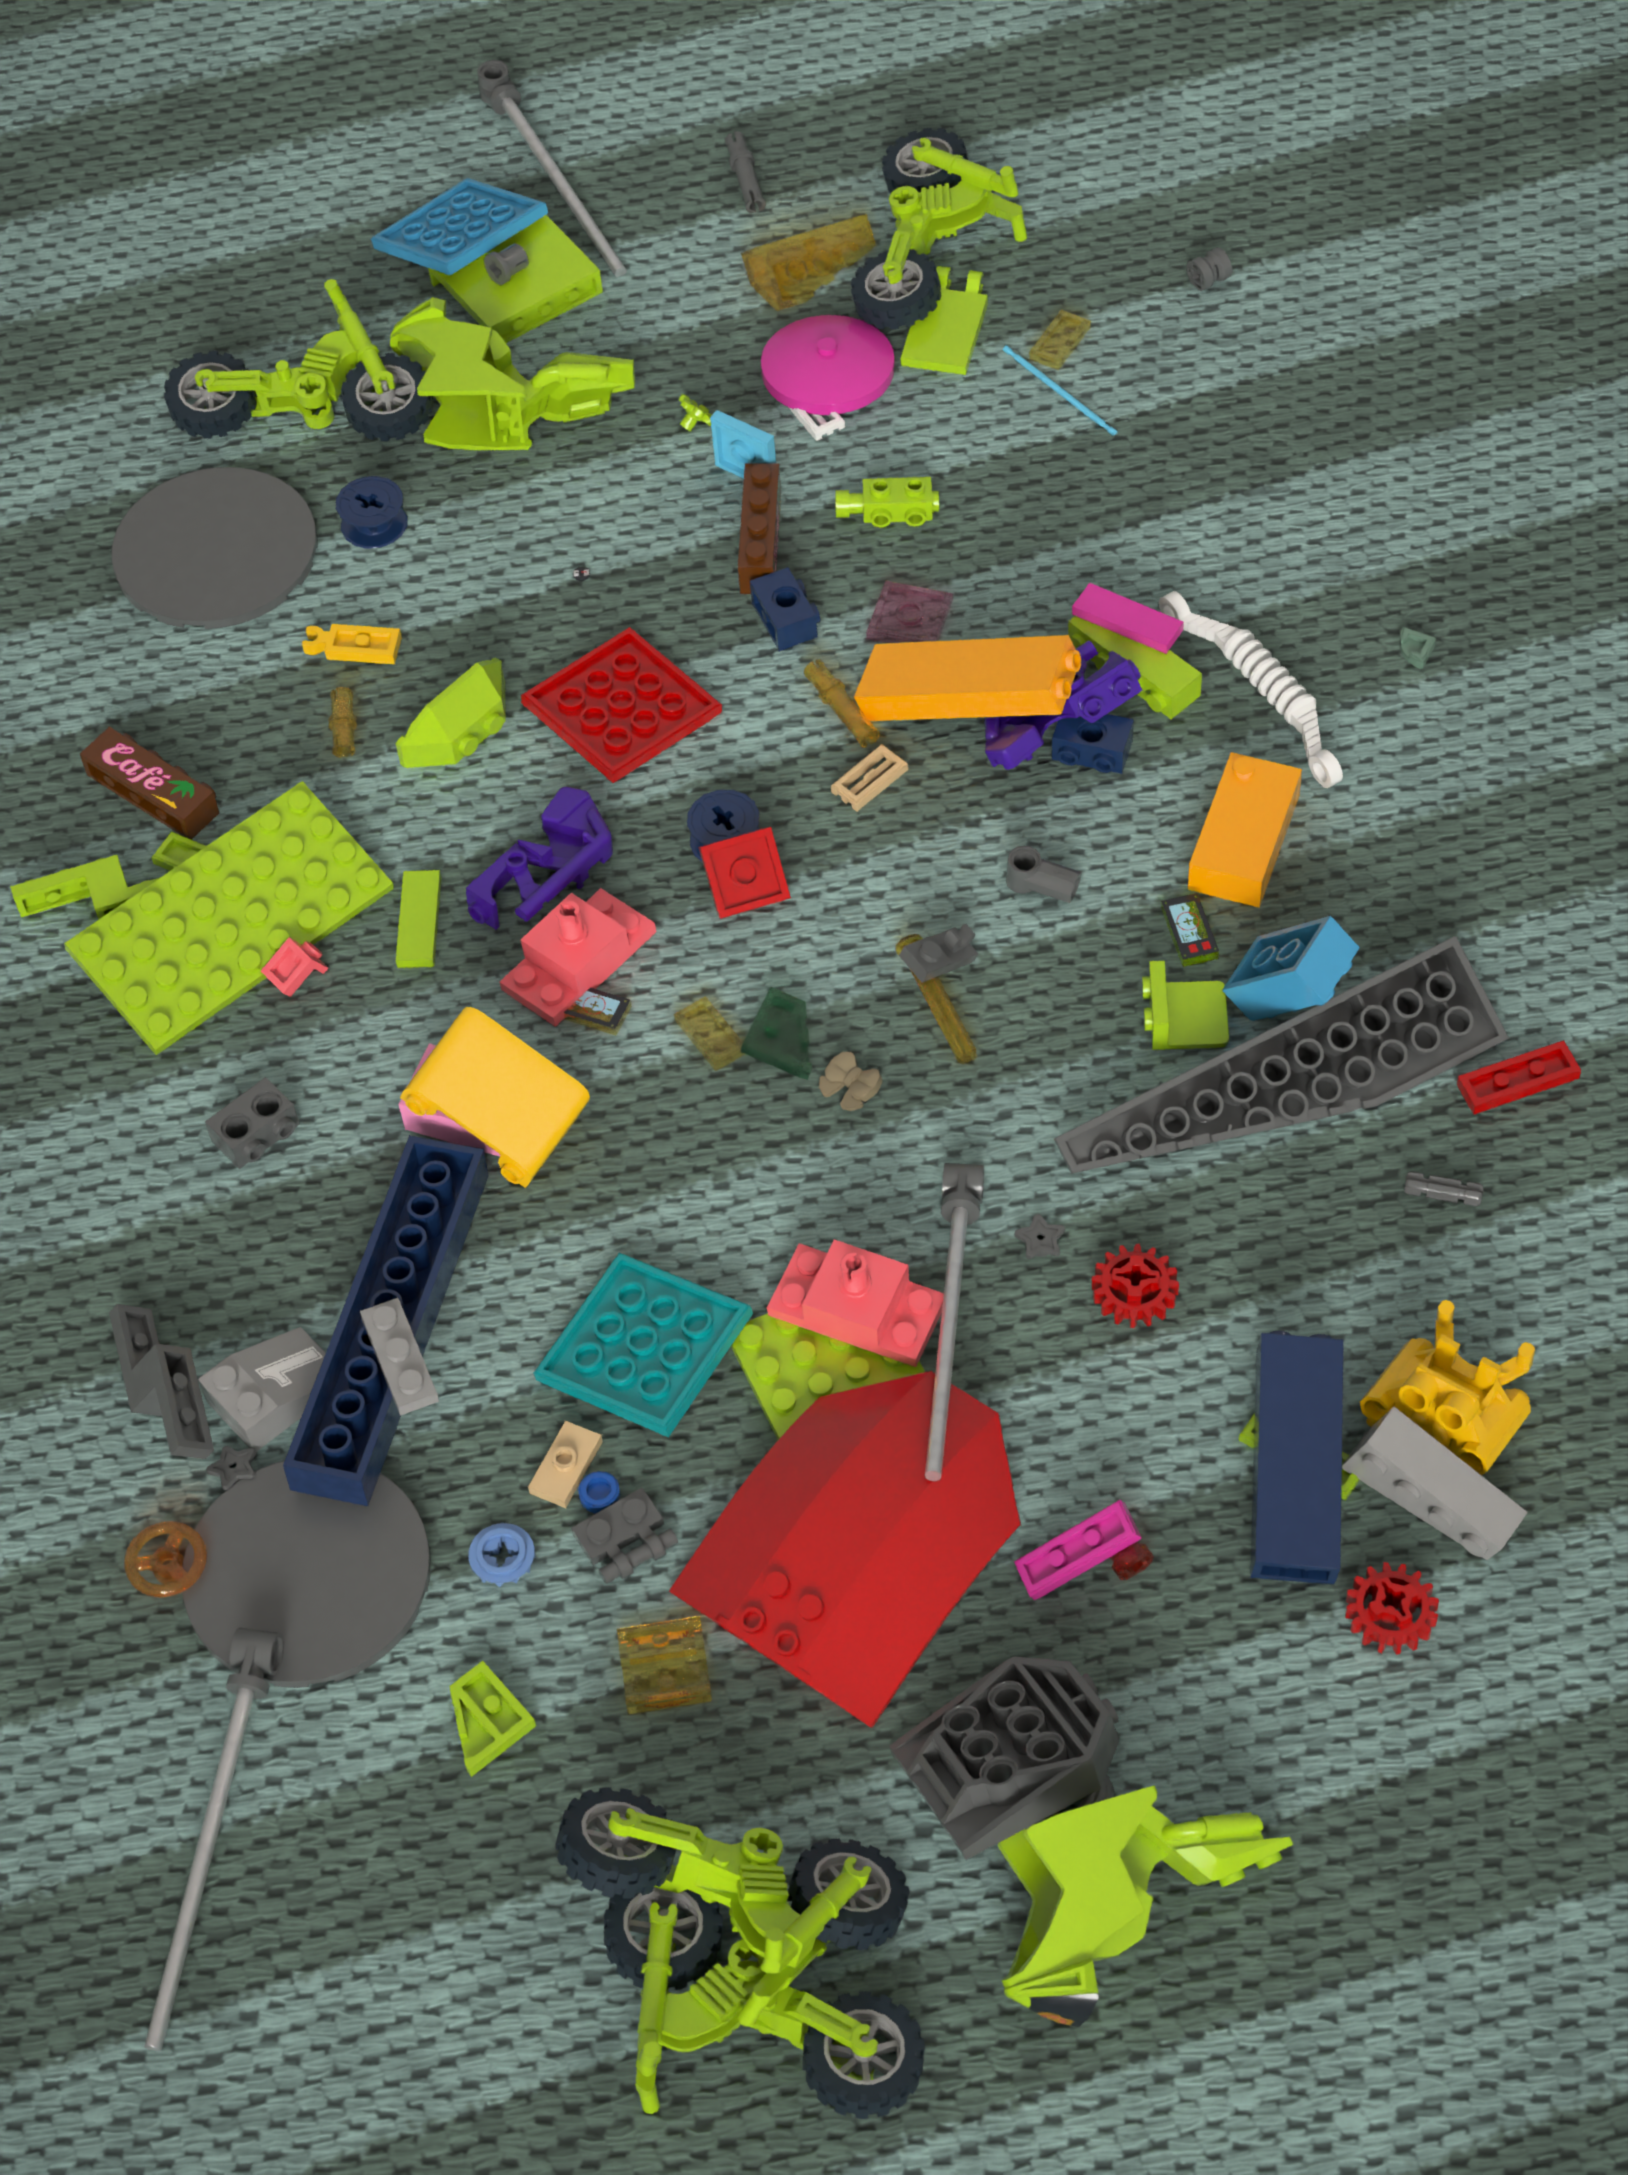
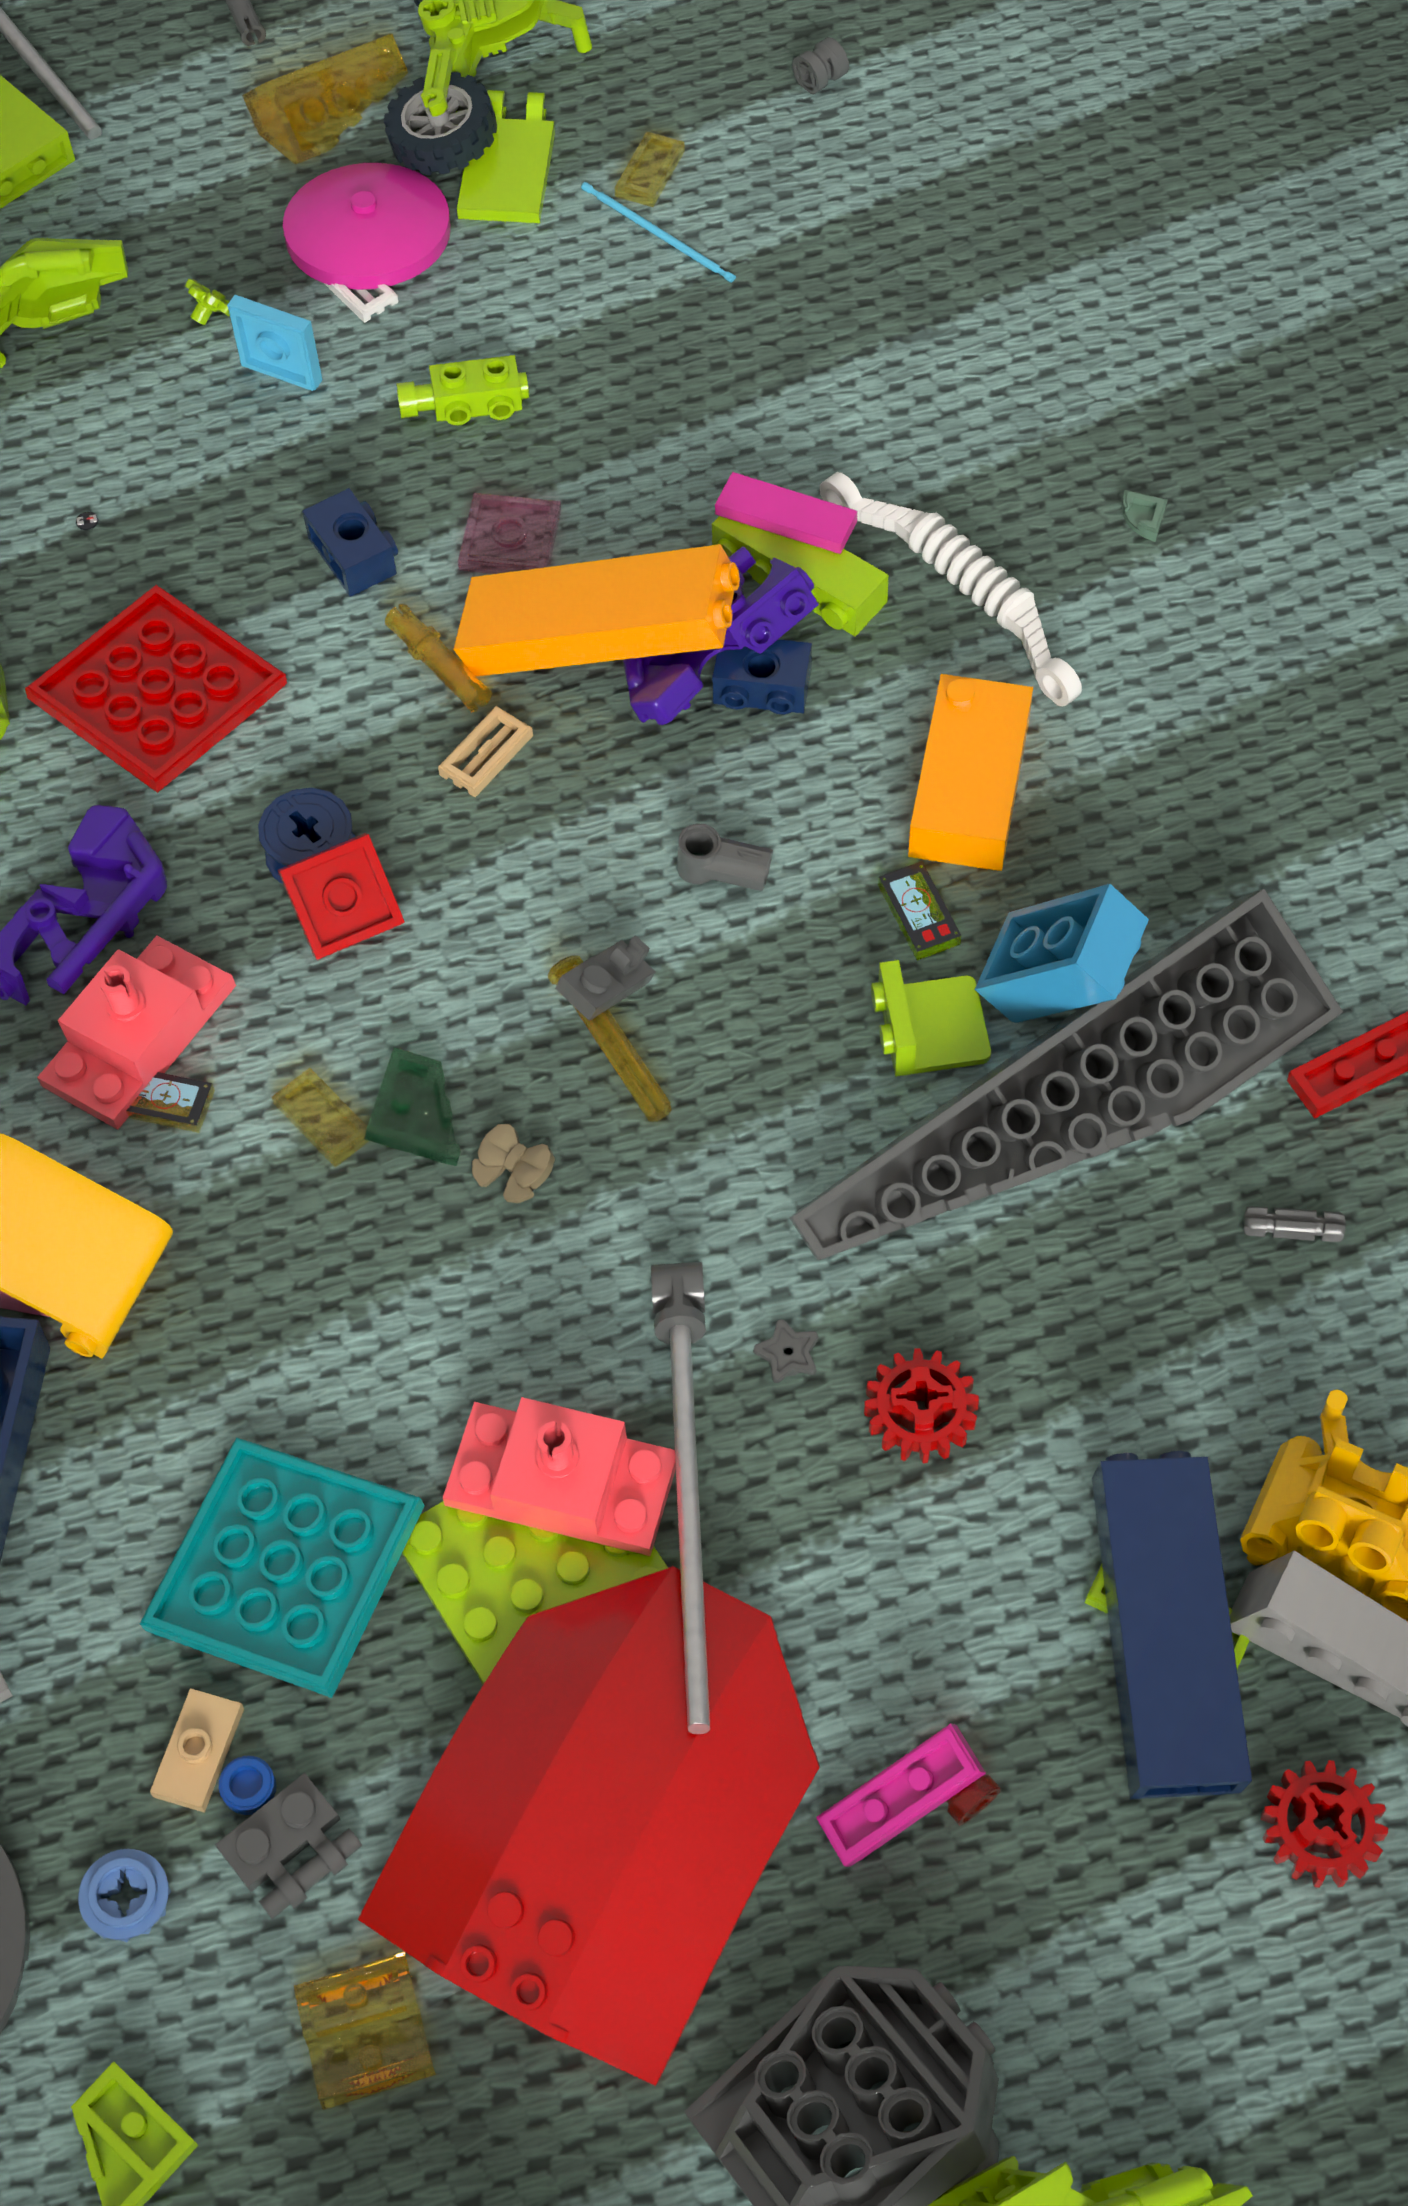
camera: 10 degrees left, 5 degrees up
(759, 523) = (305, 434): reddish brown brick -> none

